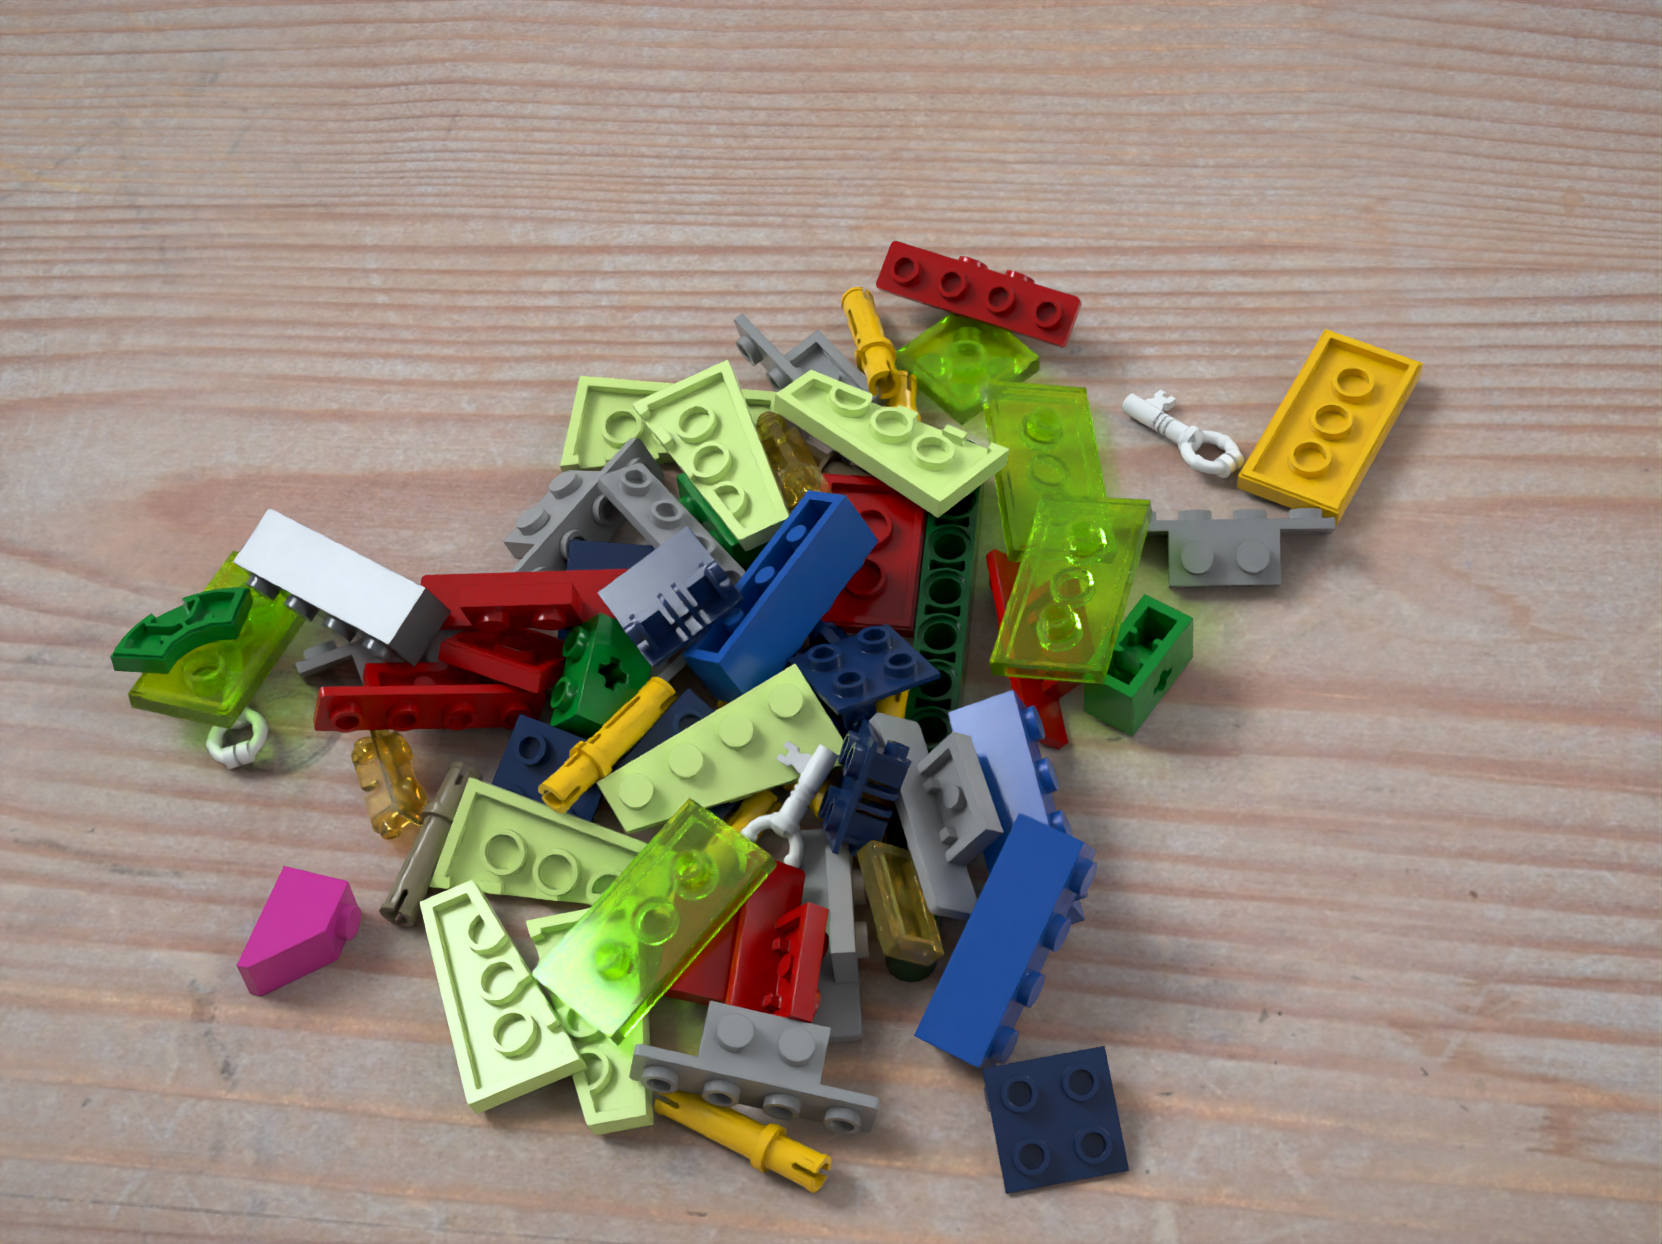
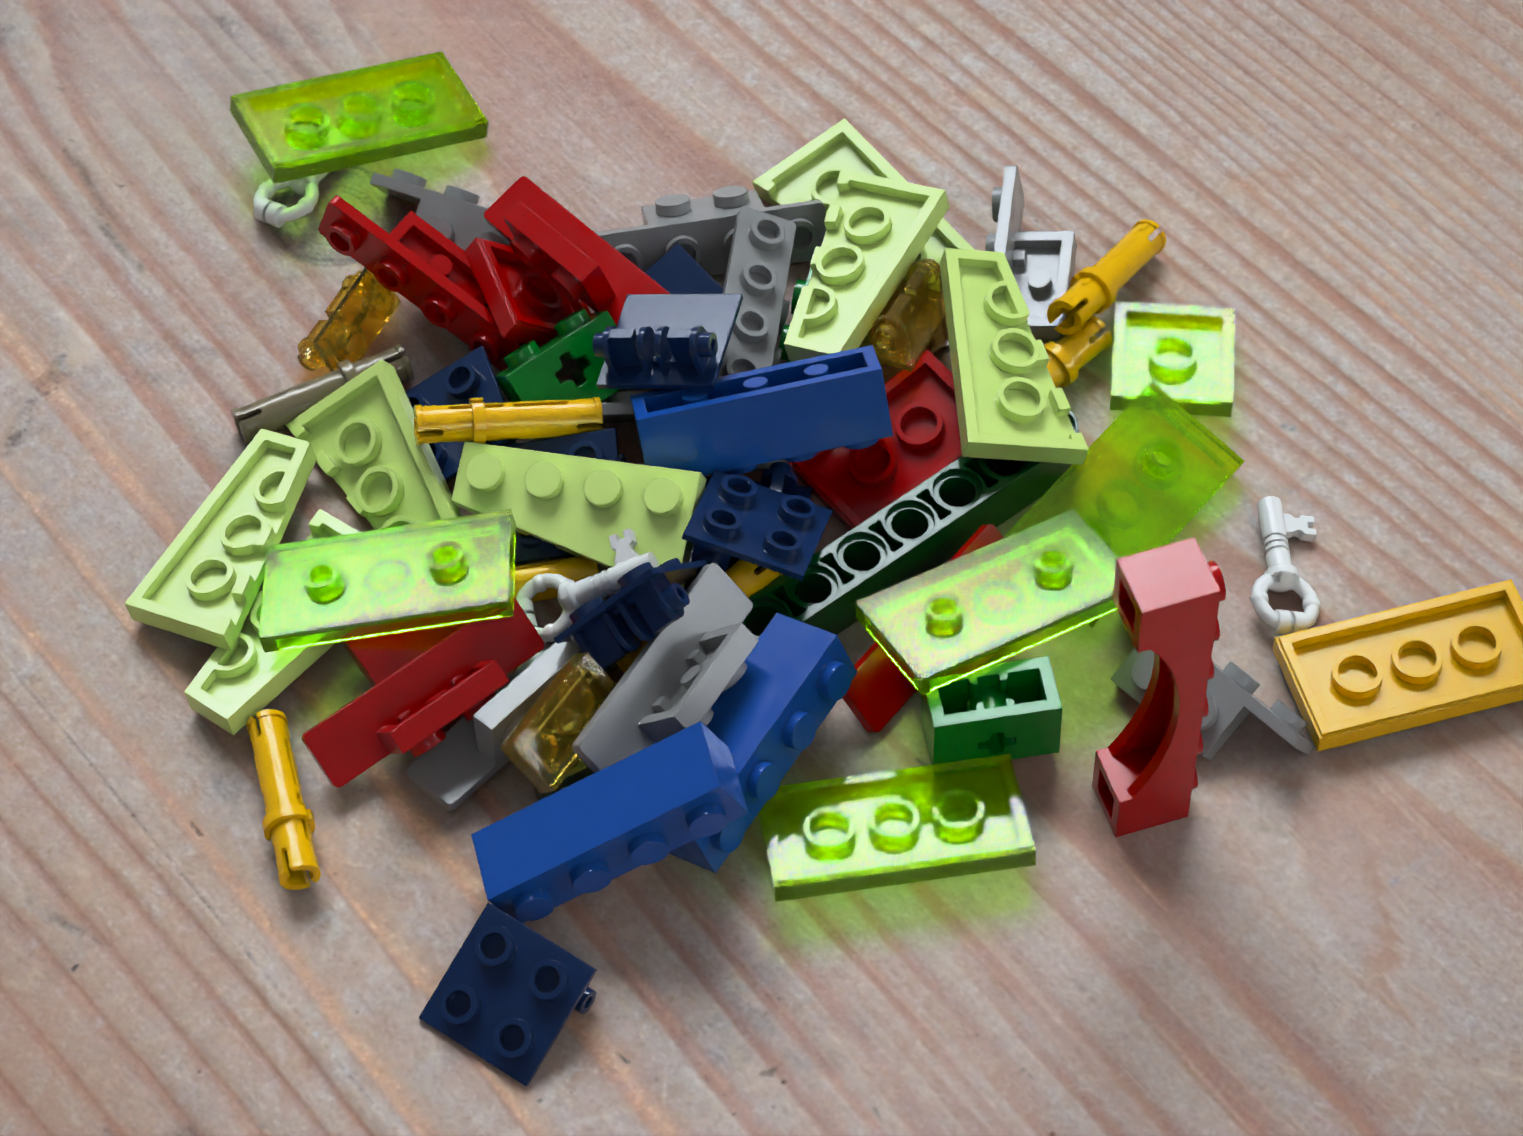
camera: 40 degrees right, 0 degrees up
(160, 642) = (299, 75): green tile -> none
(298, 930) = (158, 376): dark pink slope -> none
(342, 588) = (454, 137): brick -> none
(758, 1064) = (338, 749): light grey bracket -> none
(980, 294) = (1243, 307): red bracket -> none
(1163, 788) = (895, 828): none -> clear neon green plate
(1288, 476) = (1172, 608): none -> red arch

